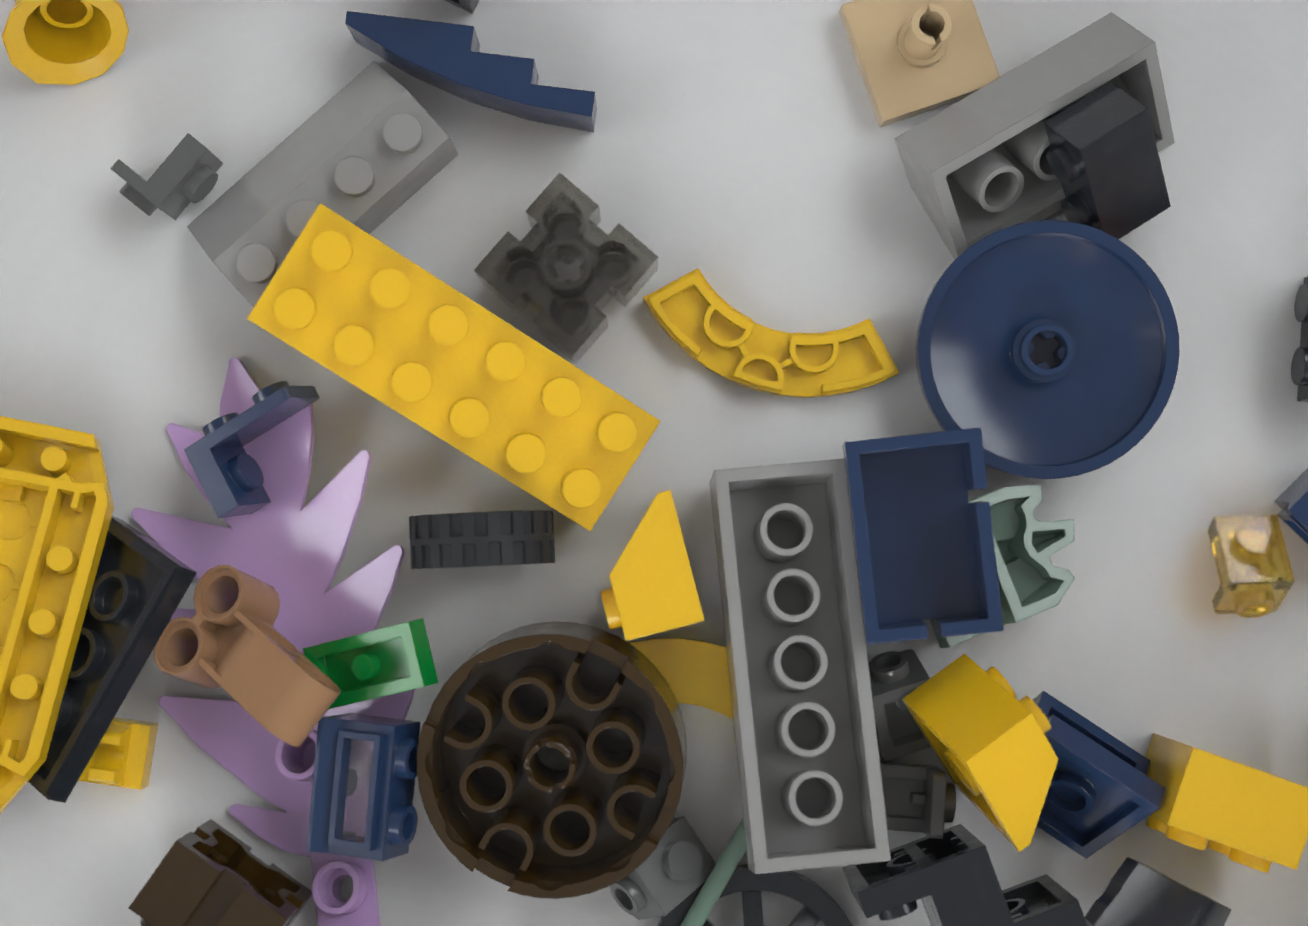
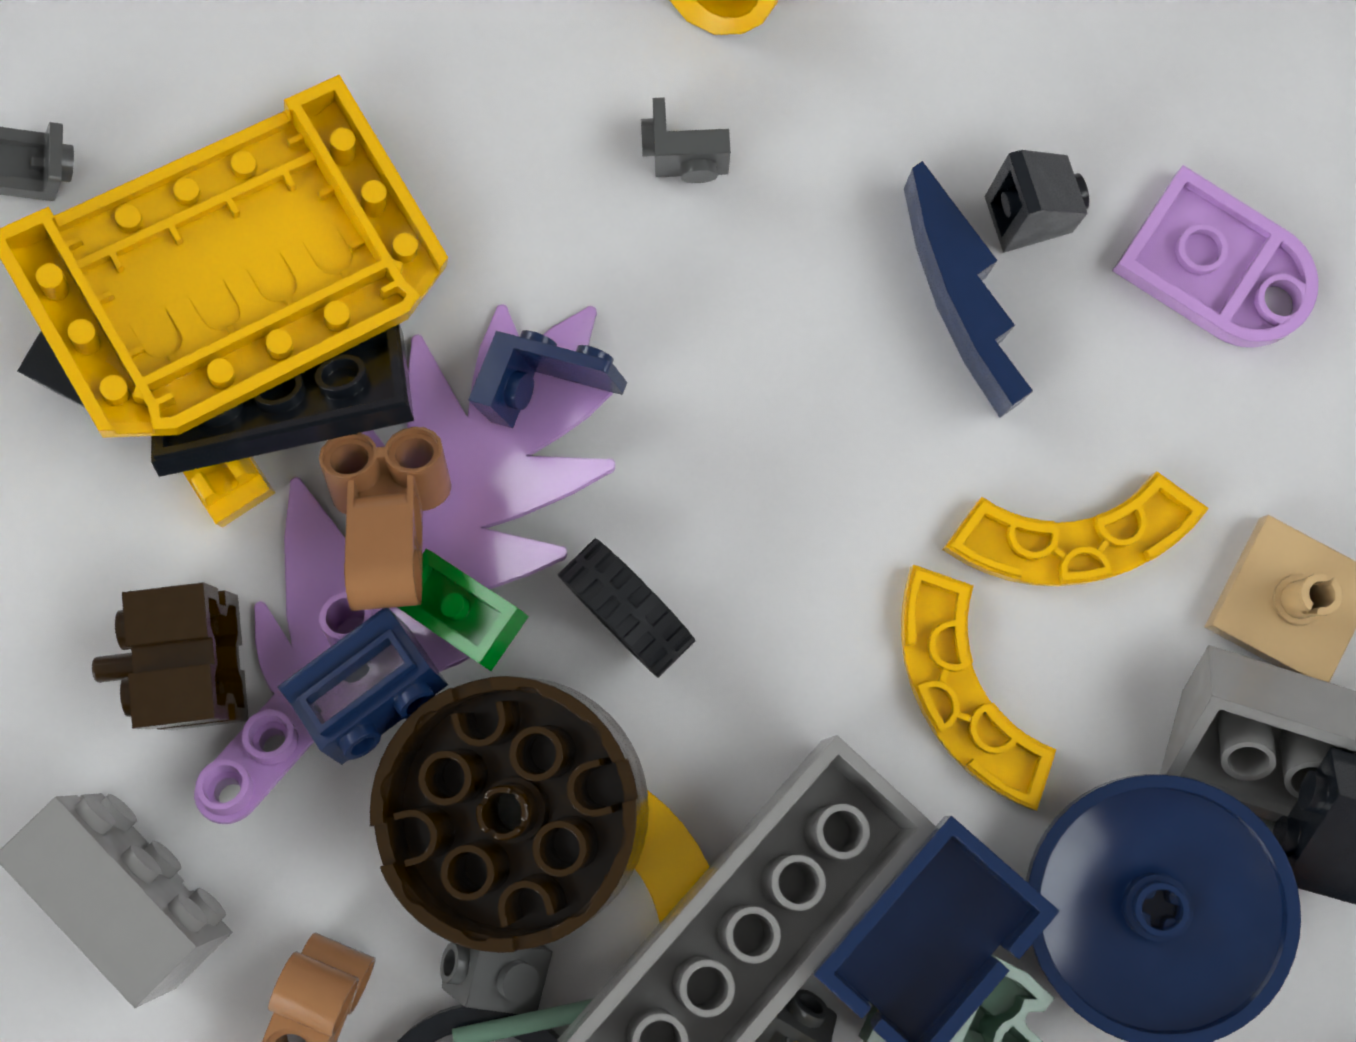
camera: 50 degrees right, 5 degrees down
(352, 155) = (776, 262): light grey slope -> none
(453, 367) = (737, 473): yellow brick -> none
(567, 230) = (909, 460): clear smoke brick -> none
(653, 577) = (716, 762): yellow slope -> none
(742, 167) = (1078, 550): none -> yellow tile

